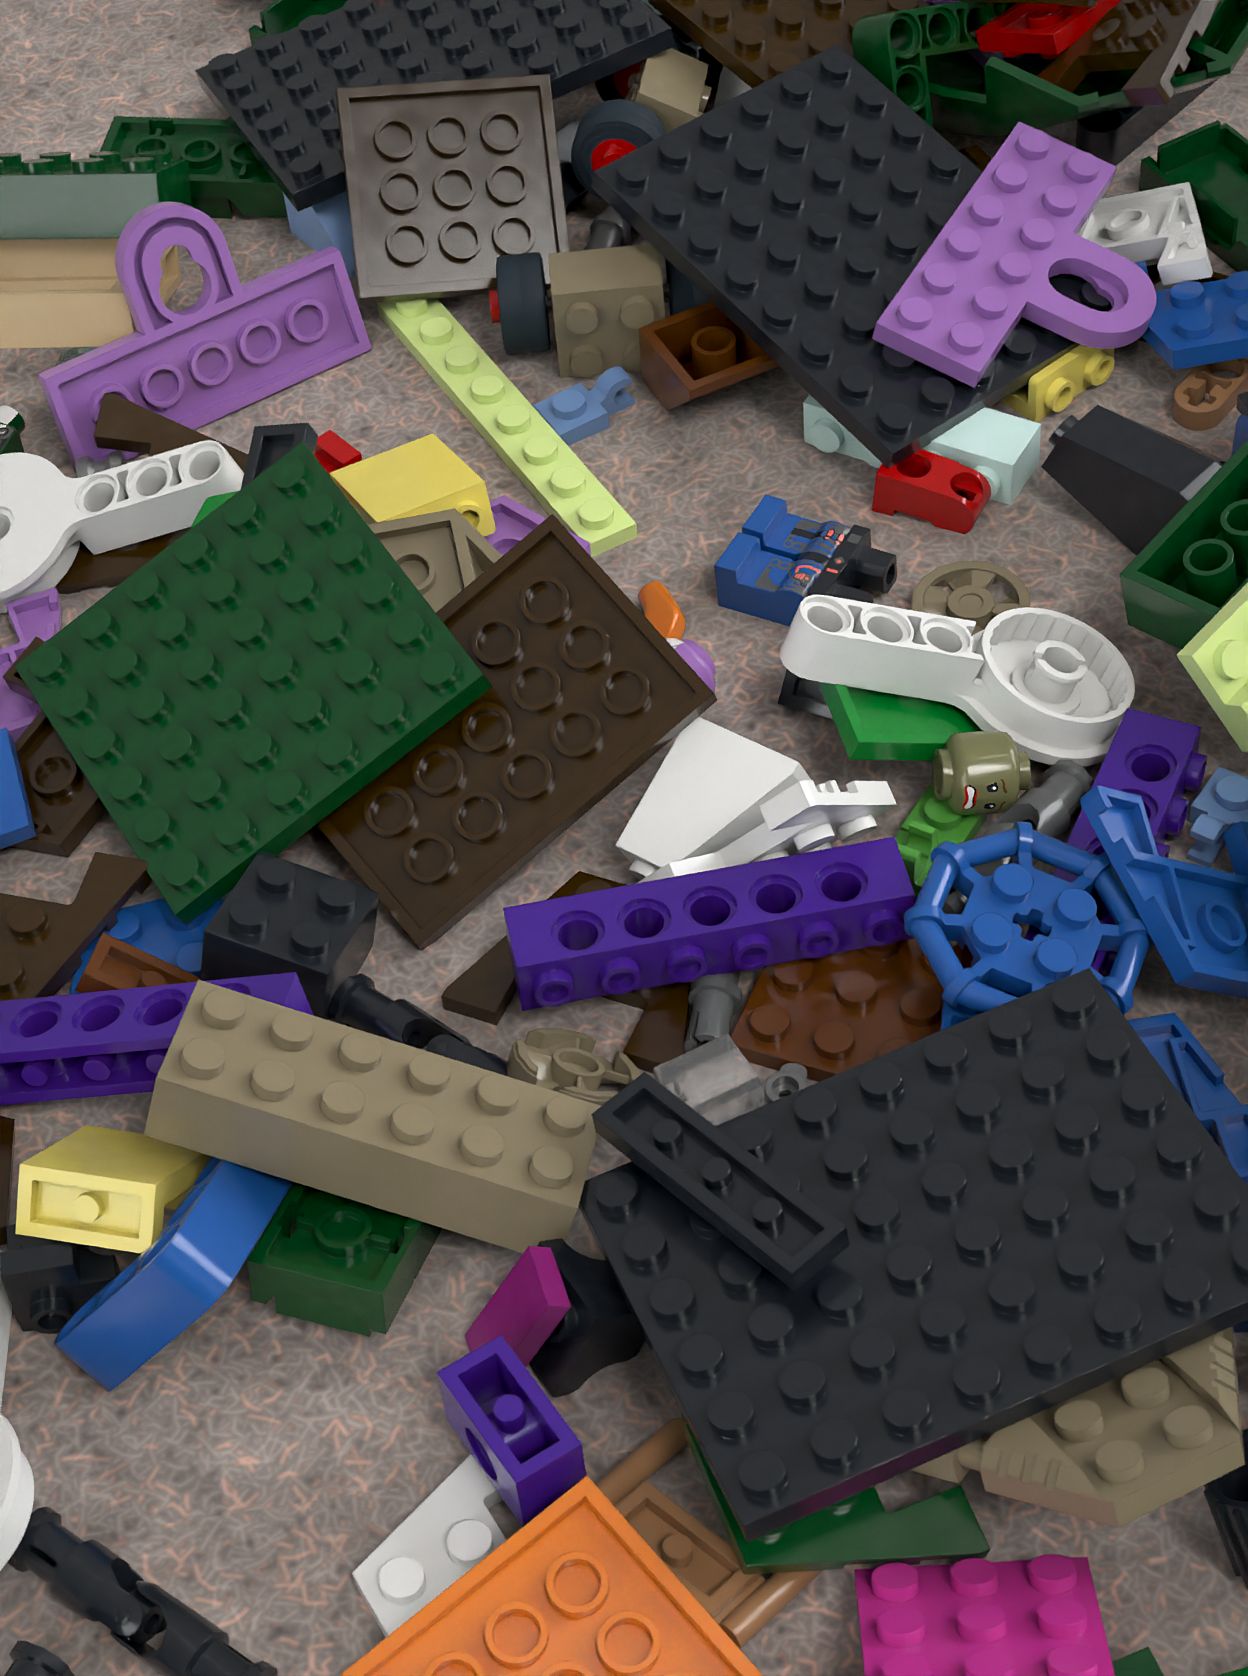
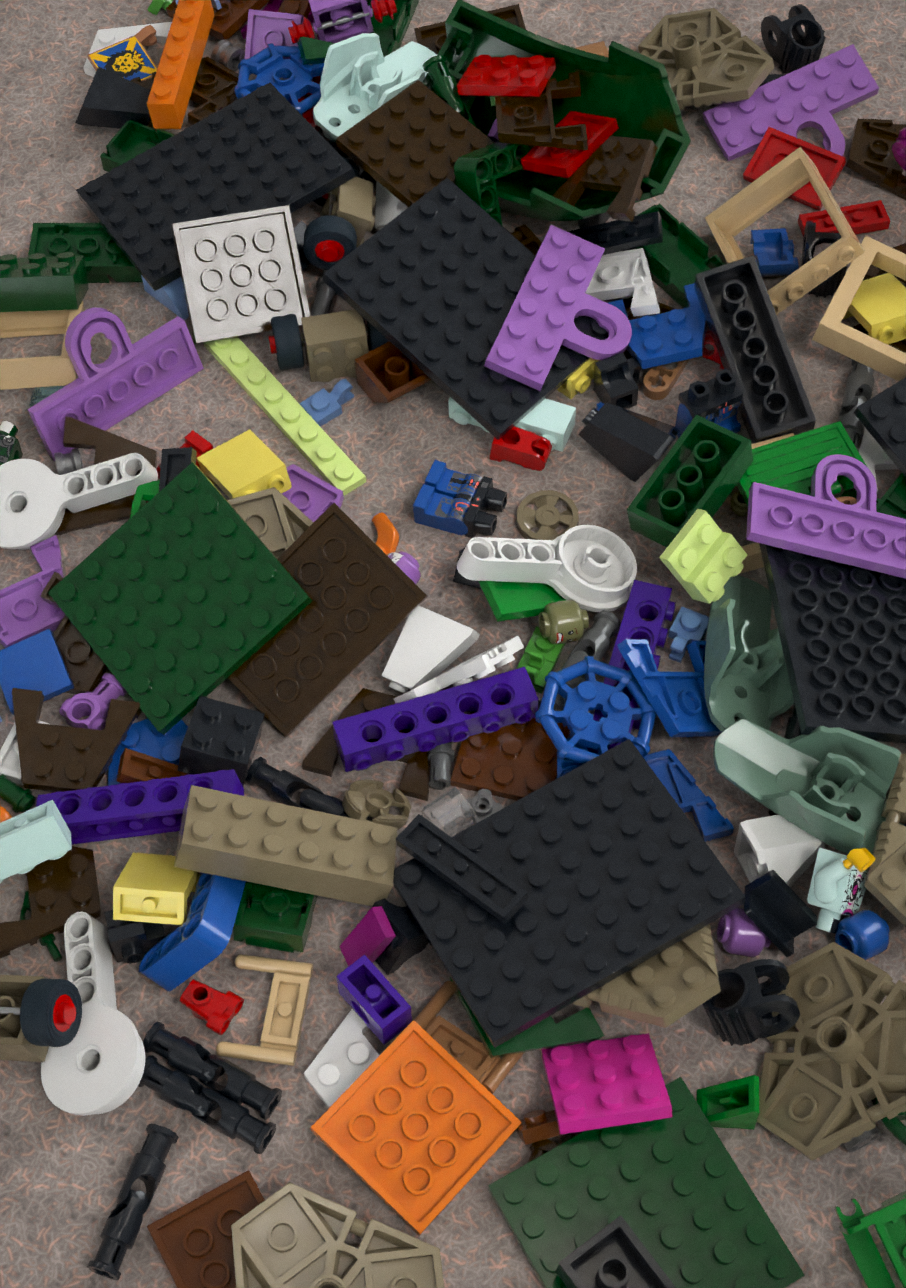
camera: 10 degrees left, 10 degrees up
(57, 868) = (92, 704): none -> medium lavender connector
(137, 1526) = (197, 1061): none -> black piece
(188, 1422) = (216, 1008): none -> red plate
(329, 1453) = (283, 1013): none -> tan plate
(1125, 380) = (617, 380): none -> black brick
(1165, 157) = (624, 235): none -> black plate

